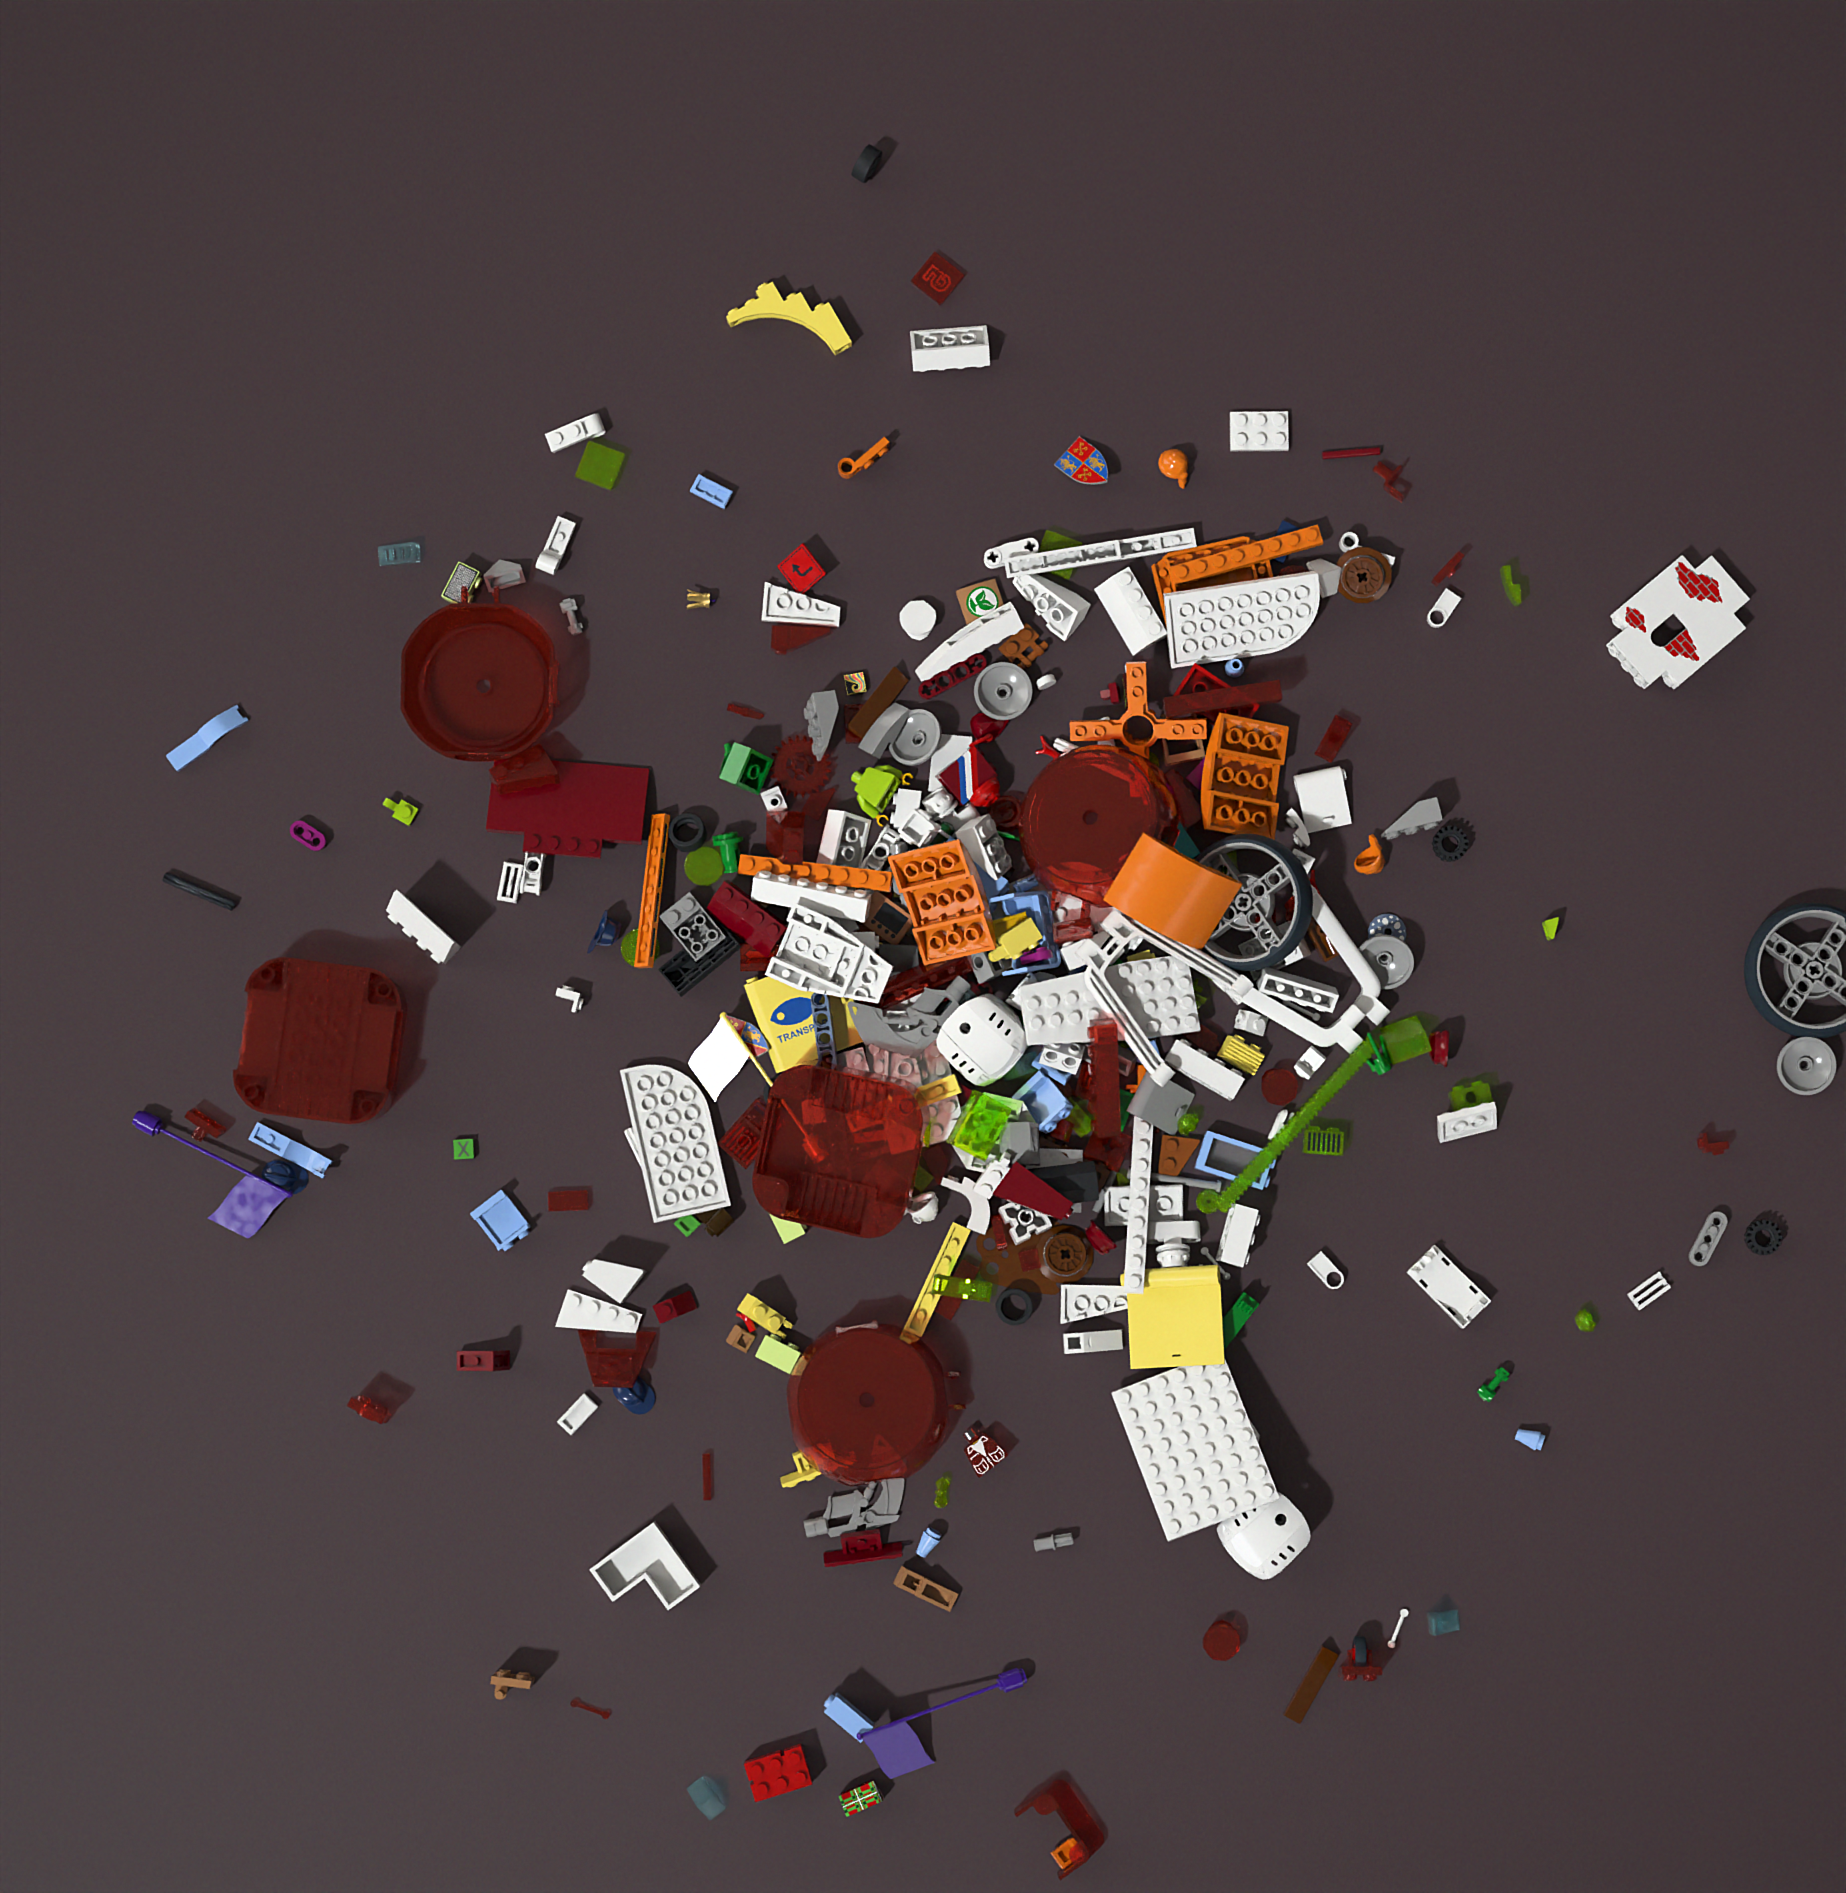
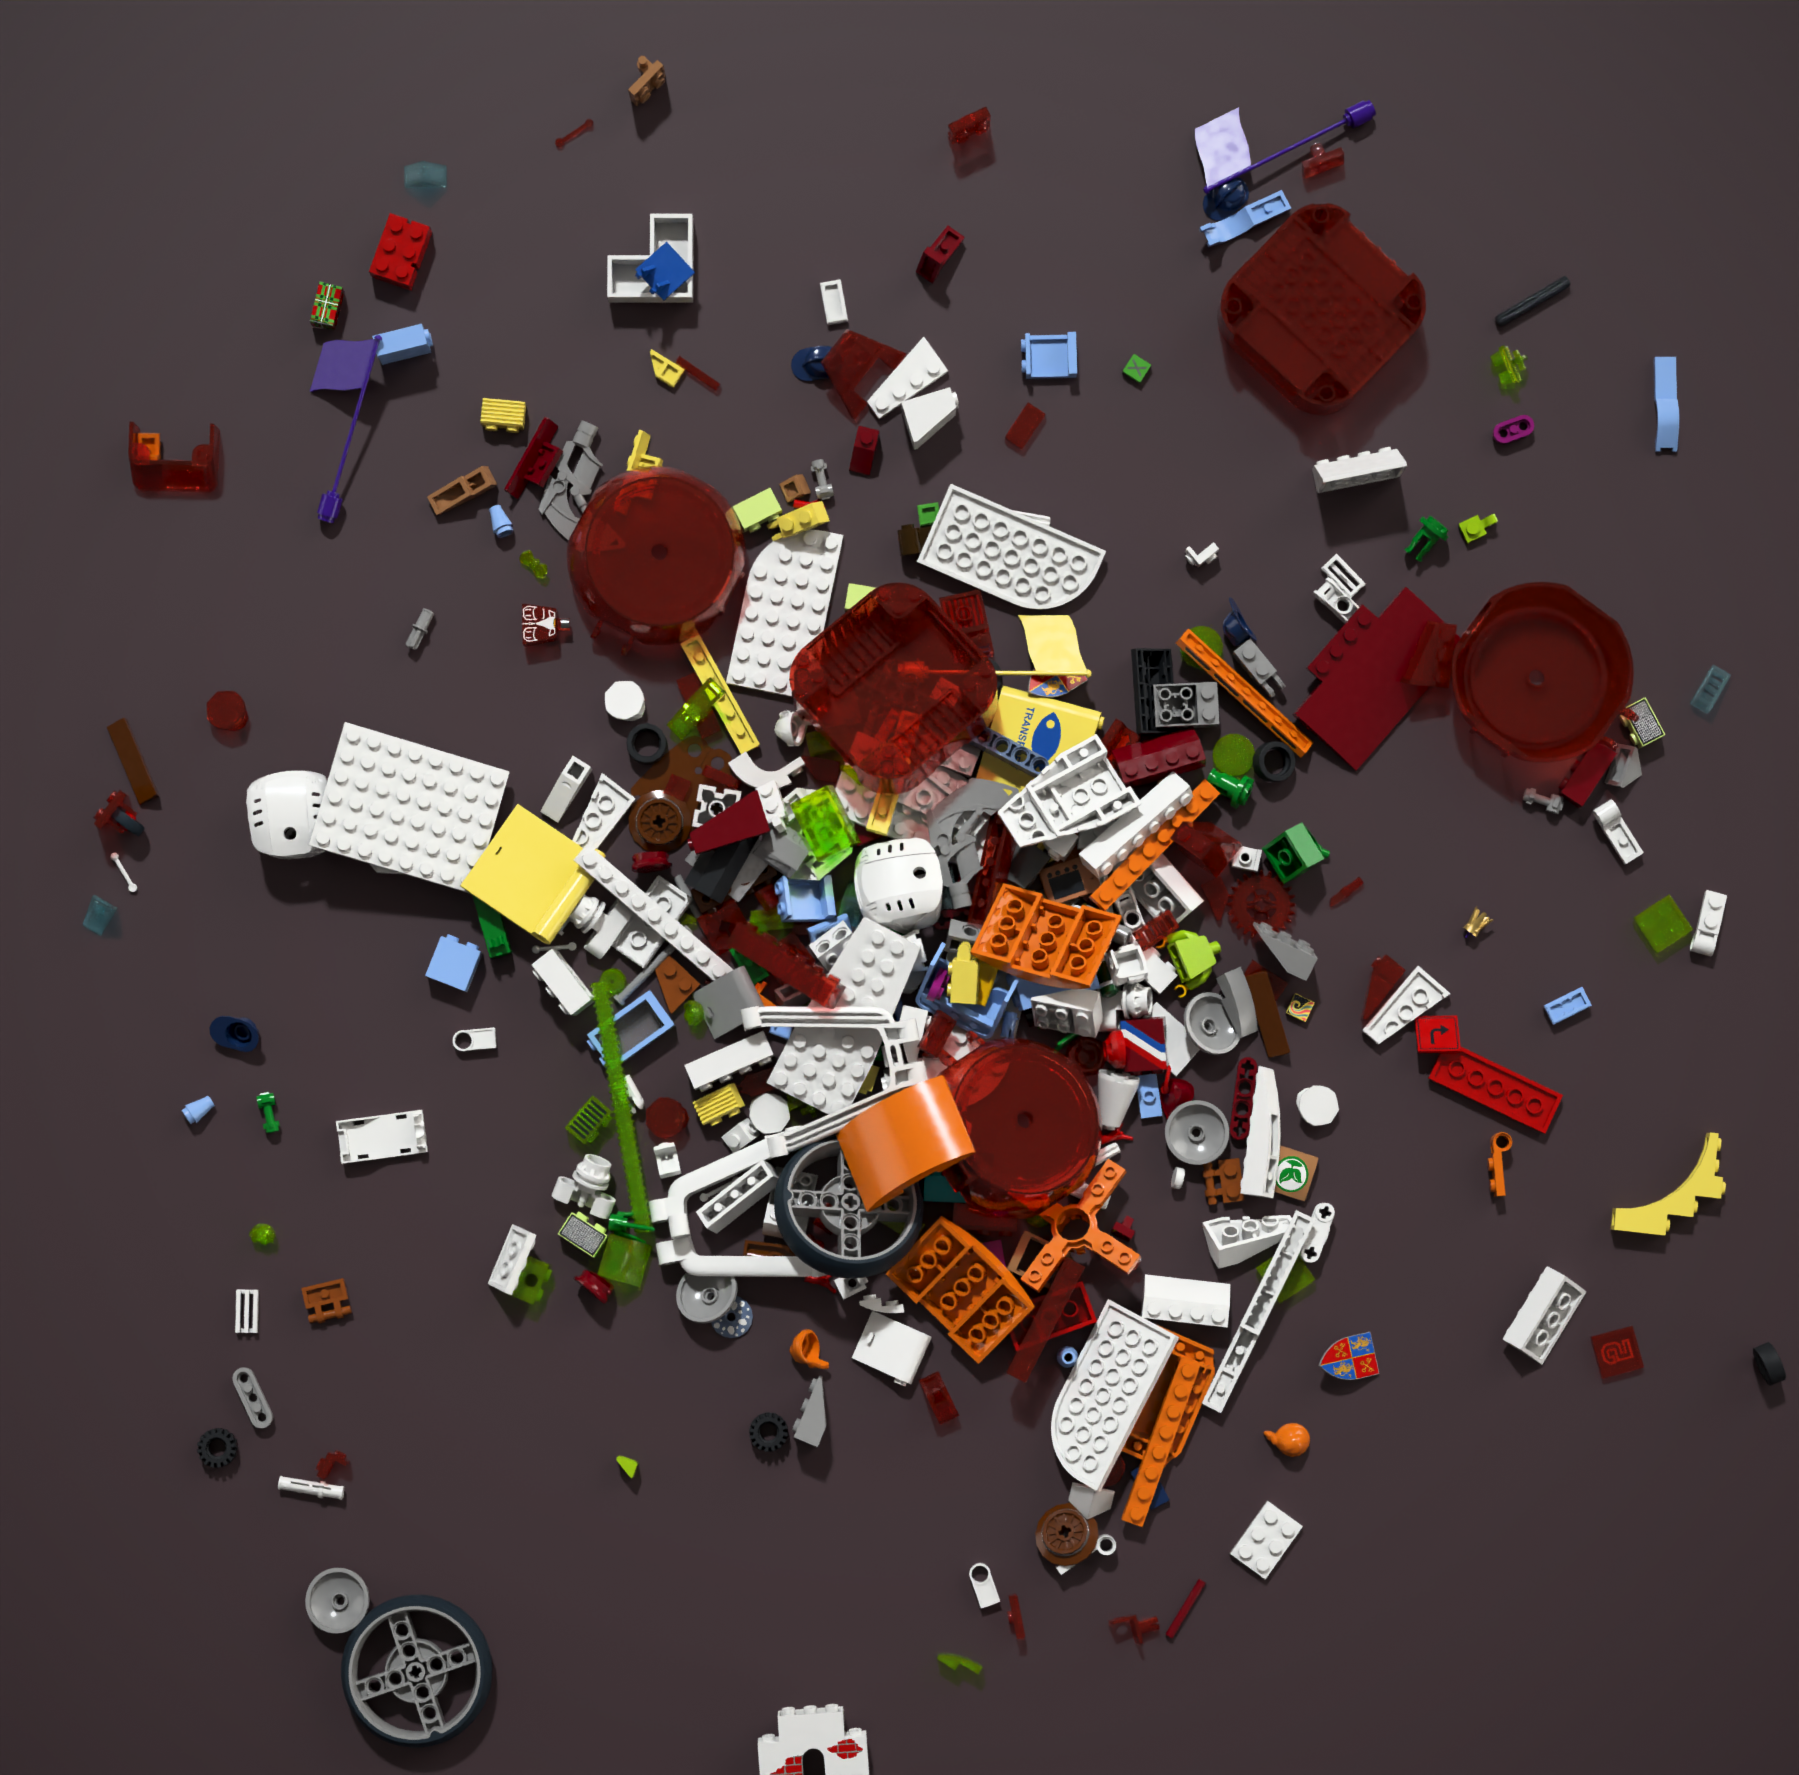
camera: 125 degrees right, 0 degrees up
(265, 867) = (1504, 356): none -> clear neon green hips
(428, 840) = (1431, 529): none -> green piece
(531, 597) = (1586, 774): none -> dark red brick
(625, 896) = (1257, 666): none -> light grey hinge
(649, 1557) = (664, 271): none -> blue plate
(721, 1503) = (665, 369): none -> light yellow tile
(727, 1315) = (824, 490): none -> light grey bar
(809, 499) = (1497, 1088): none -> red plate
(838, 1278) = (783, 608): none -> white plate
(845, 1600) = (503, 414): none -> light yellow brick
(866, 823) = (1165, 921): none -> clear red slope
(994, 1346) = (625, 701): none -> white hat
(1001, 746) = (1149, 1096): none -> light blue plate
(1019, 769) = (1115, 1096): none -> white cone
(1219, 1013) = (769, 1113): none -> white hat
(1282, 1328) = (454, 963): none -> light blue piece
(1372, 1106) = (590, 1177): none -> white beam
(1409, 1084) = (583, 1234): none -> brick
(1454, 1451) = (235, 1033): none -> dark blue piece
(1594, 1242) = (324, 1294): none -> dark orange plate
(1739, 1146) = (308, 1487): none -> white pin

